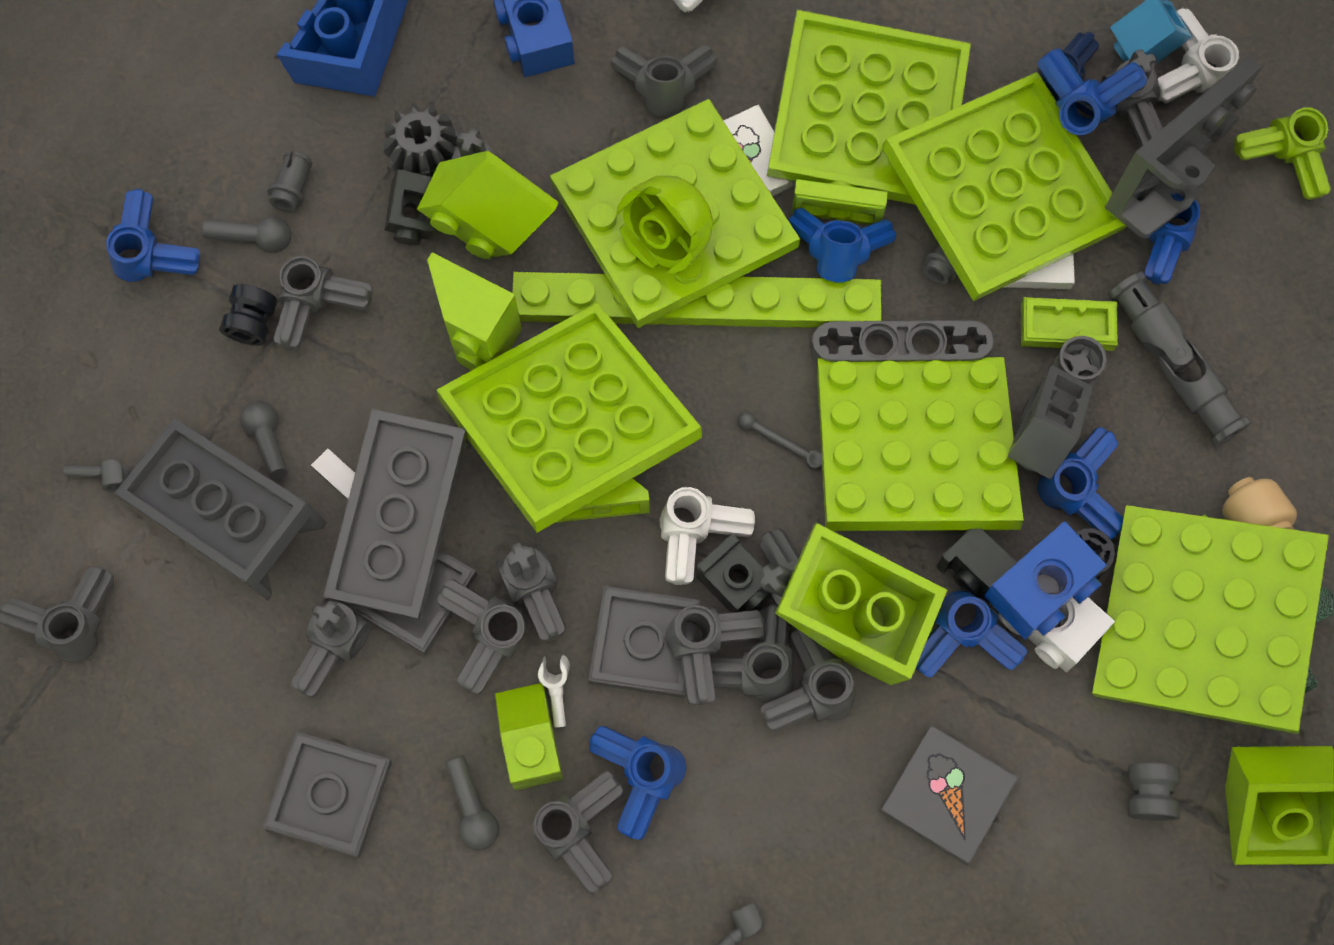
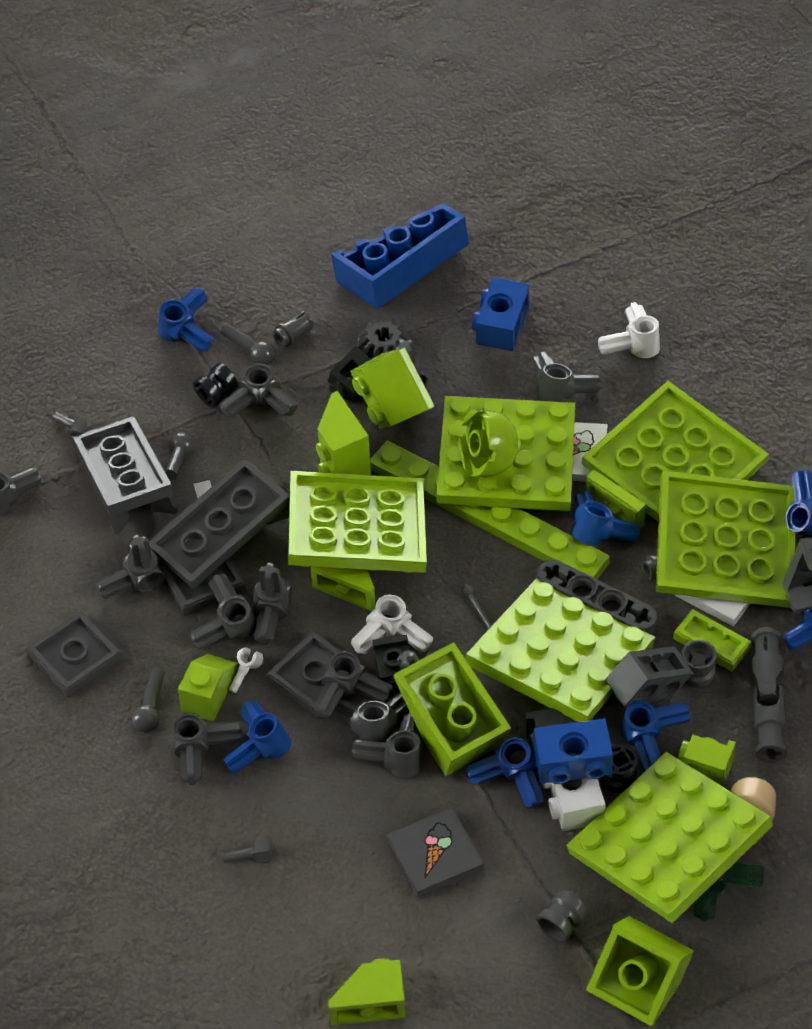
camera: 35 degrees right, 20 degrees down
(1173, 485) = (708, 757): none -> lime brick

